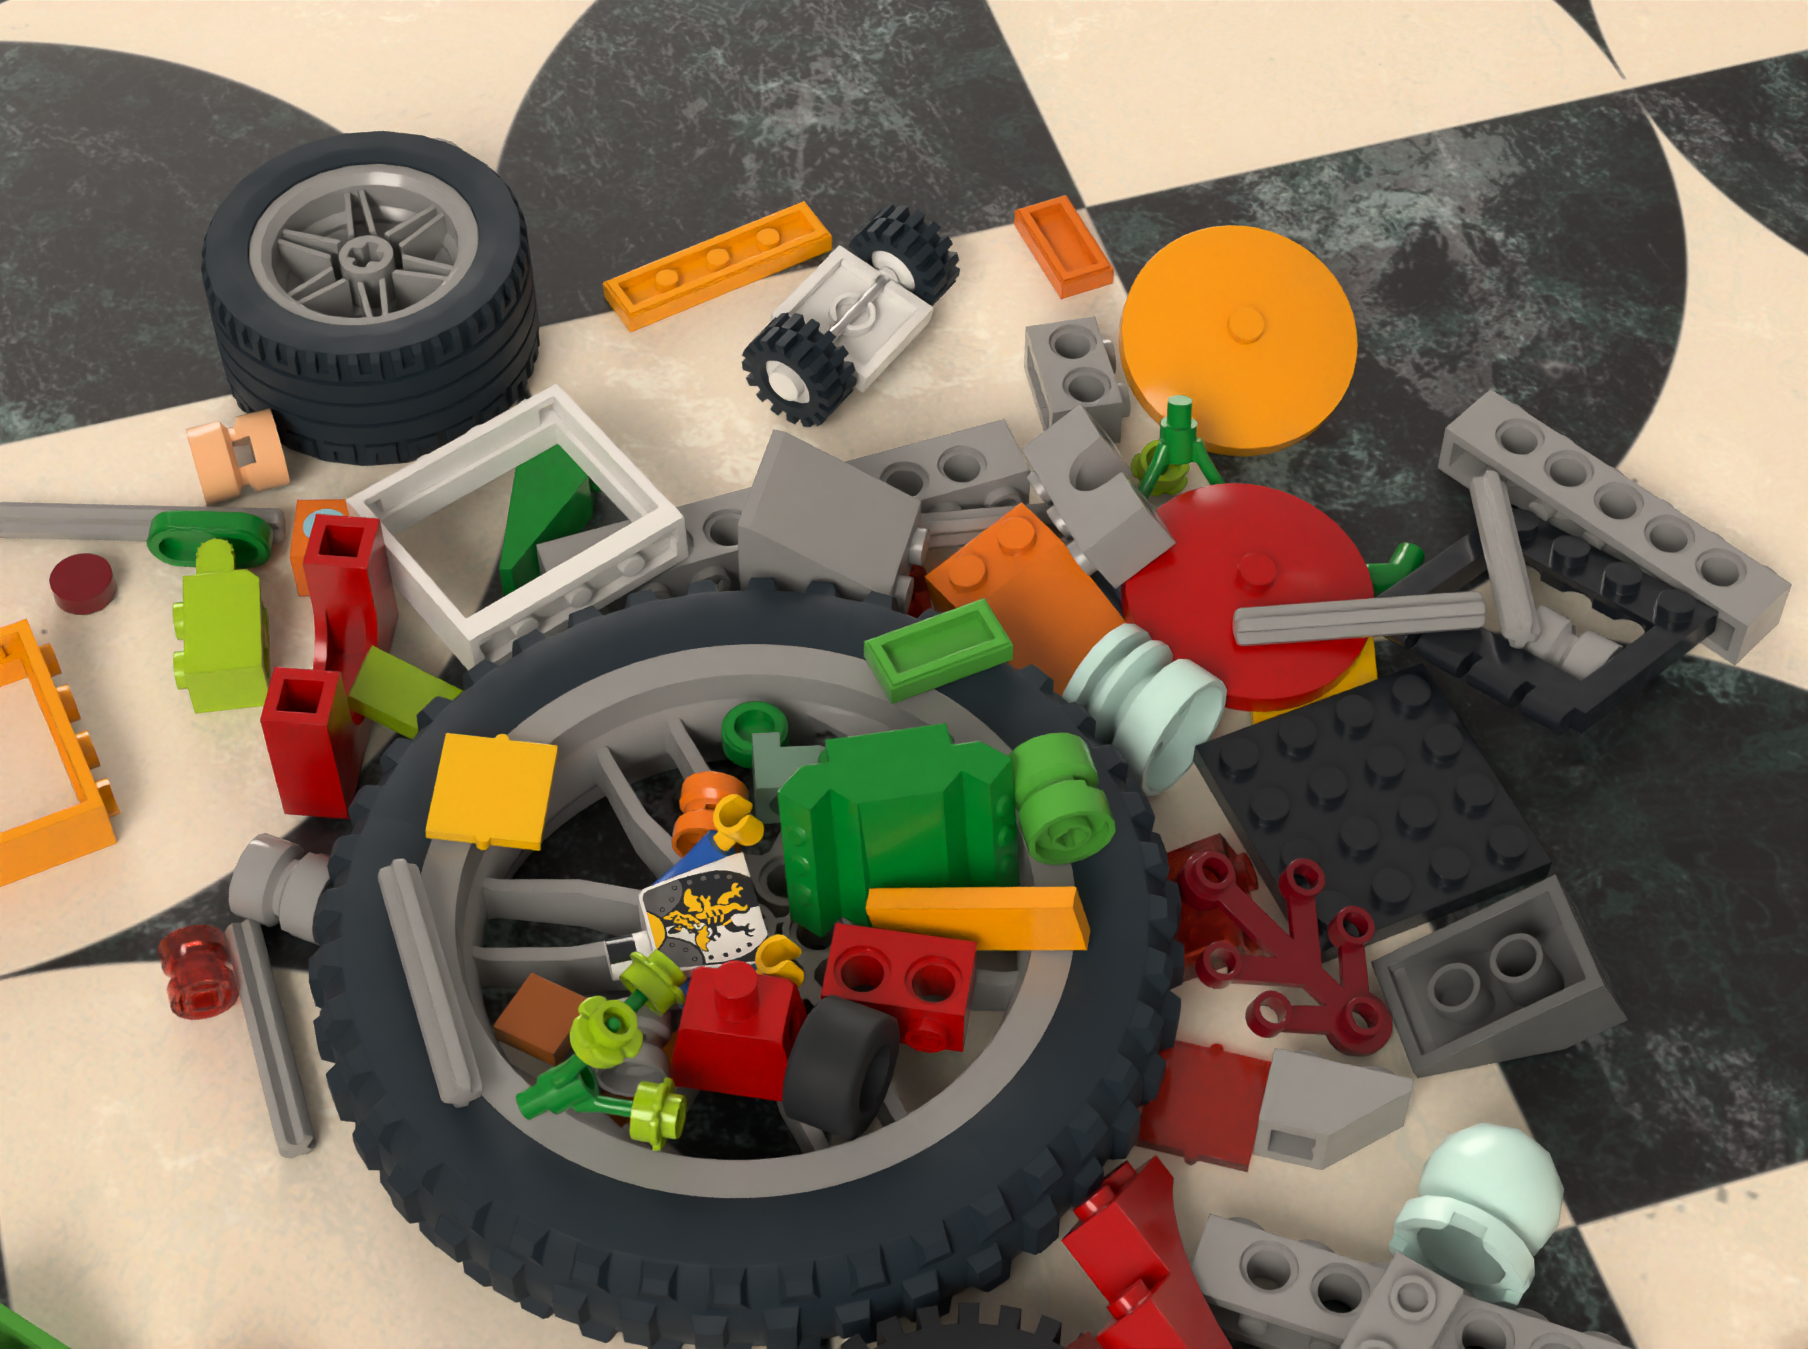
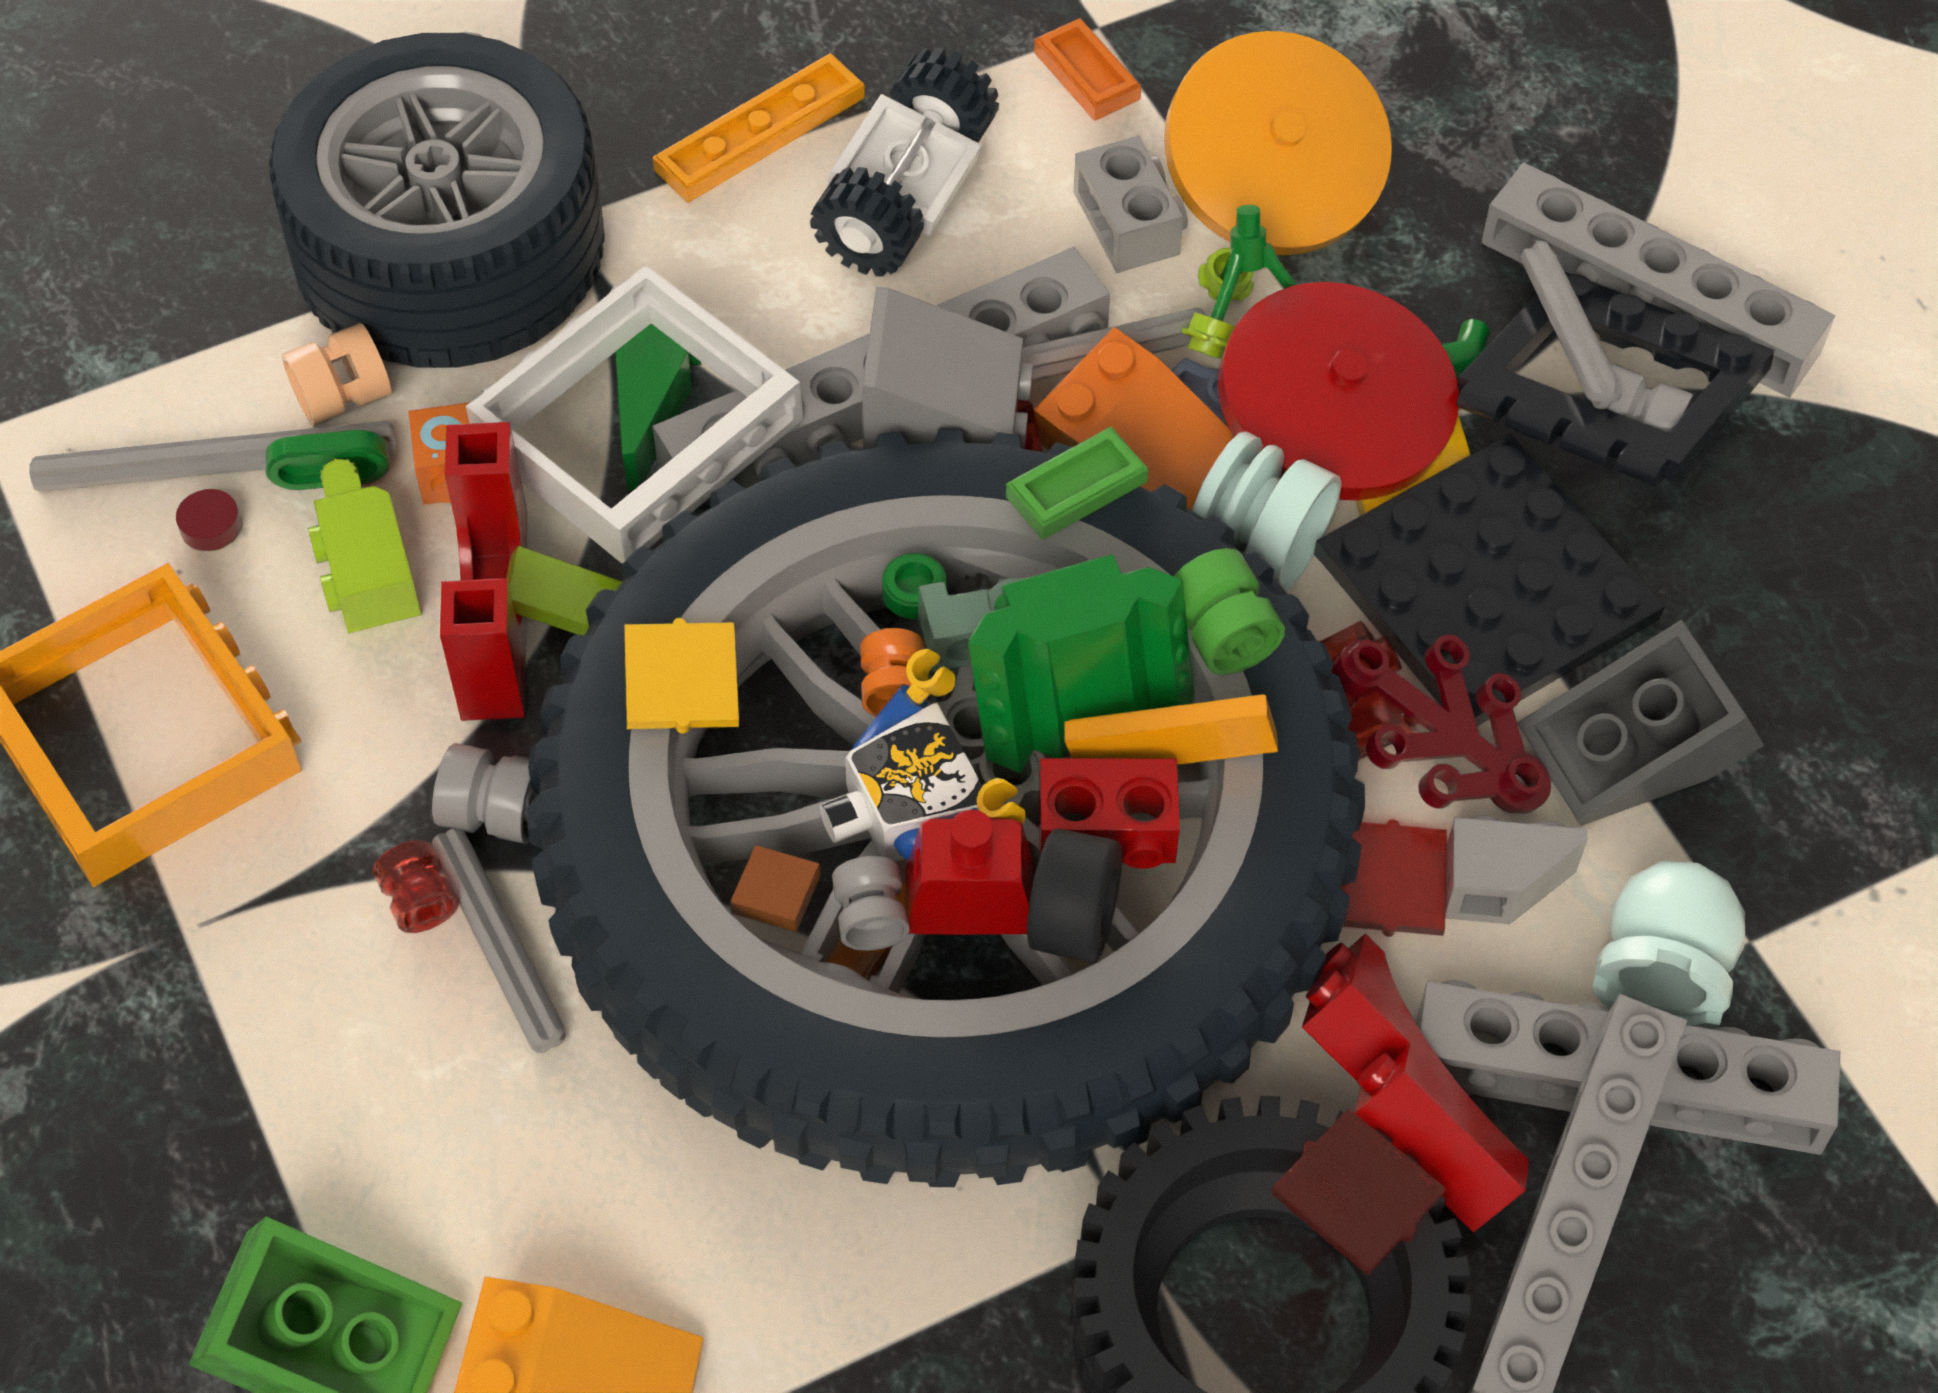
camera: 10 degrees left, 5 degrees up
(430, 984) = (667, 870): light grey axle -> none
(601, 1040) = (865, 902): lime plant -> none
(1094, 498) = (1203, 334): light grey arch -> none
(1359, 618) = (1451, 399): light grey axle -> none

